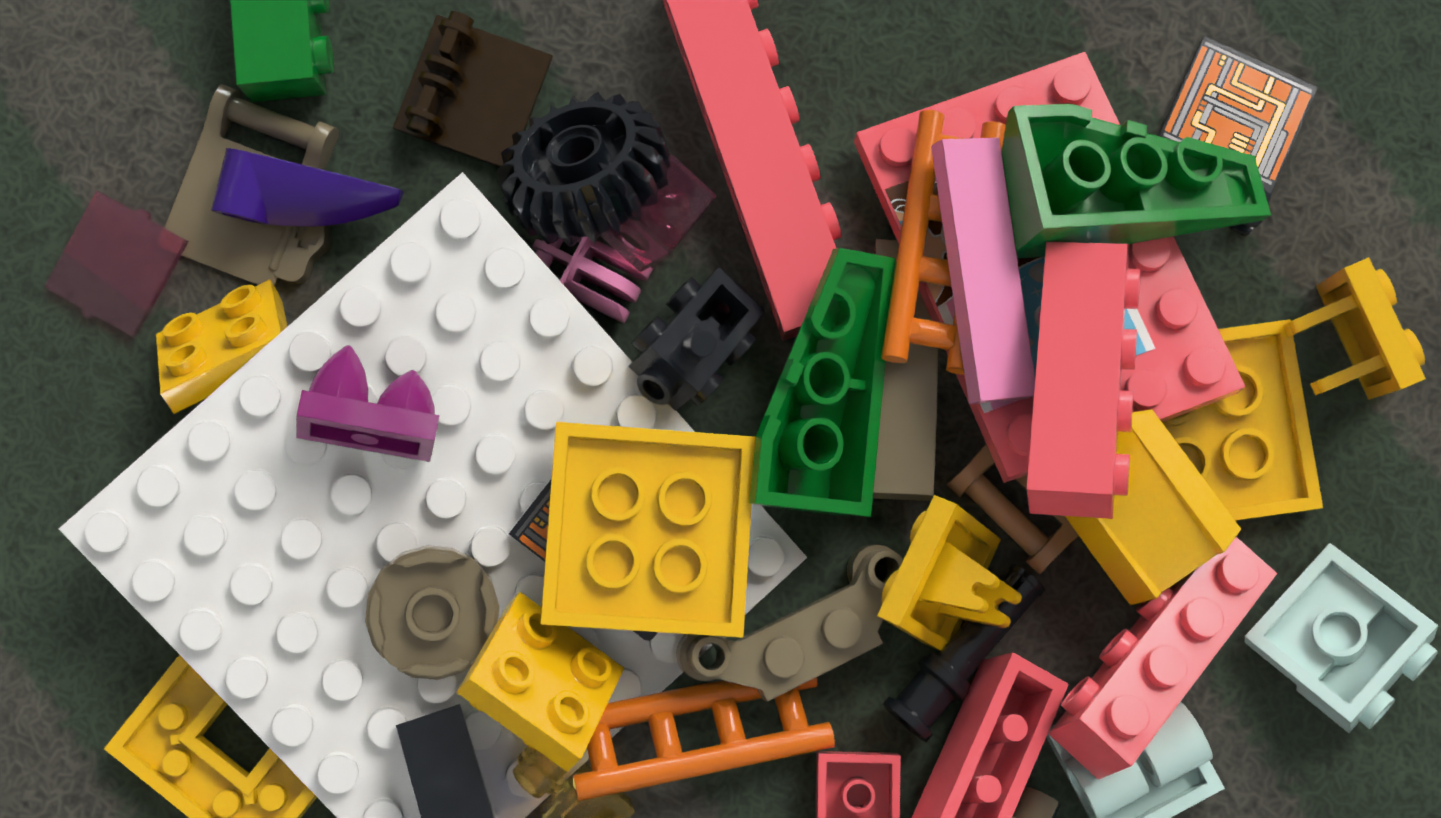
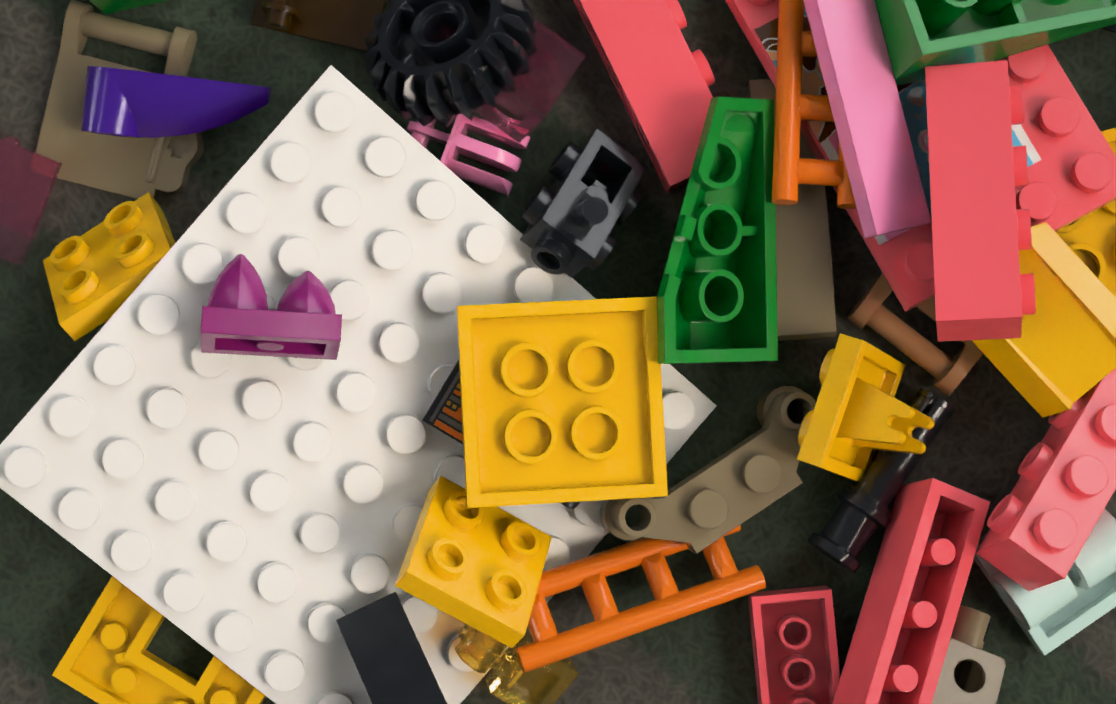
camera: 10 degrees left, 5 degrees up
(431, 612) = (356, 506): dark tan tile -> none

